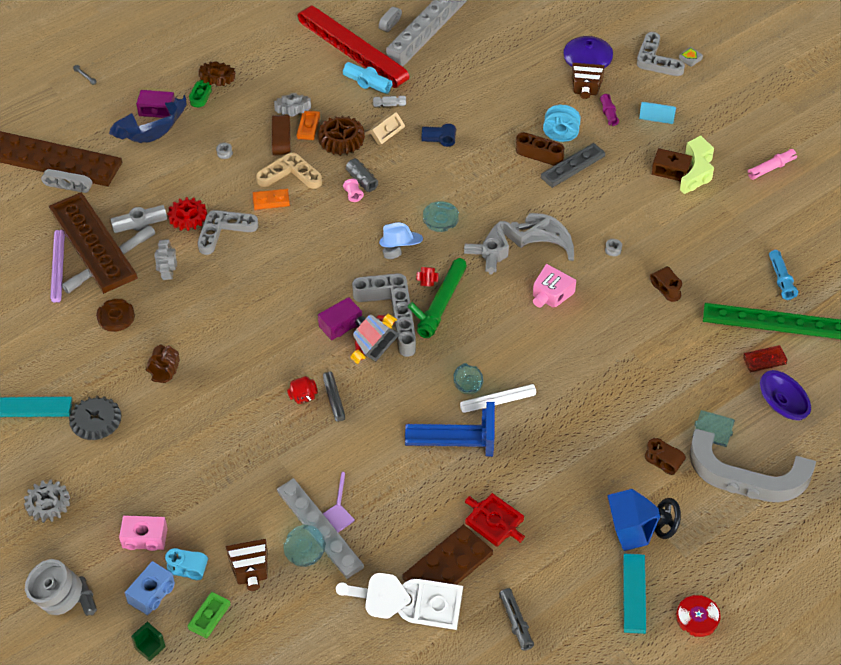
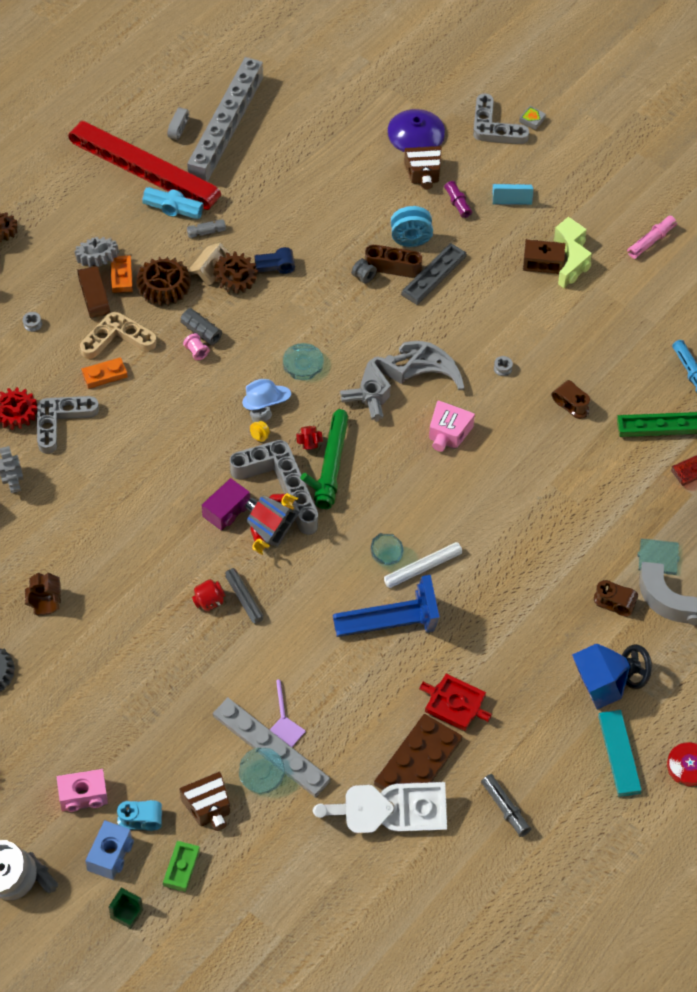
camera: 15 degrees left, 5 degrees up
(386, 264) = (259, 431): none -> yellow plate
(403, 137) = (233, 270): none -> reddish brown gear
(512, 153) = (364, 271): none -> dark grey wheel

